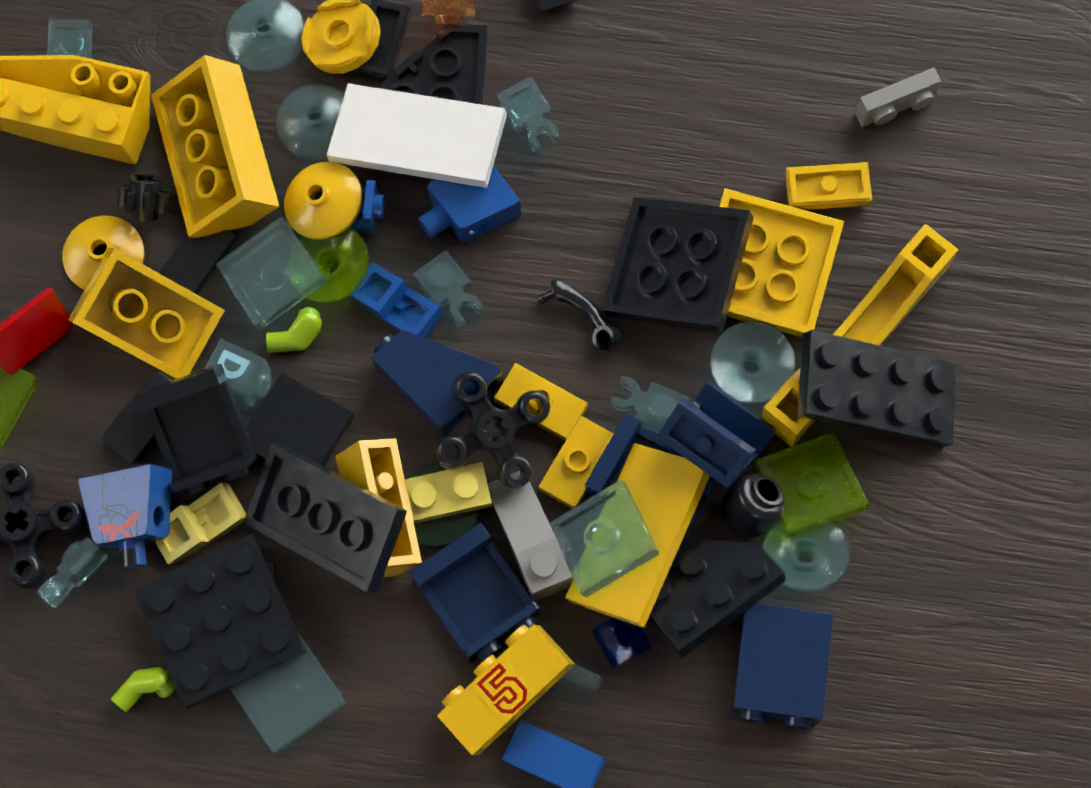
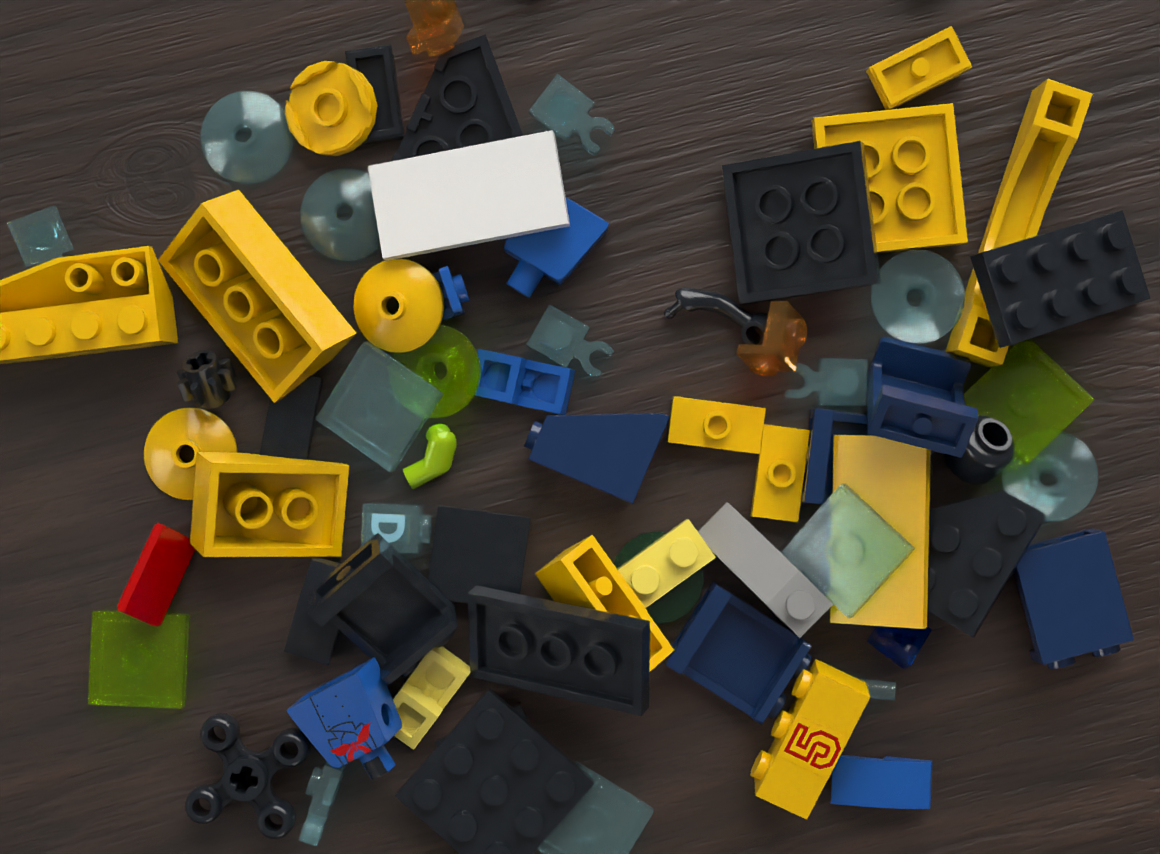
camera: 25 degrees left, 15 degrees up
(505, 420) = (674, 474): black gear -> none
(620, 351) = (781, 342): none -> clear orange bracket

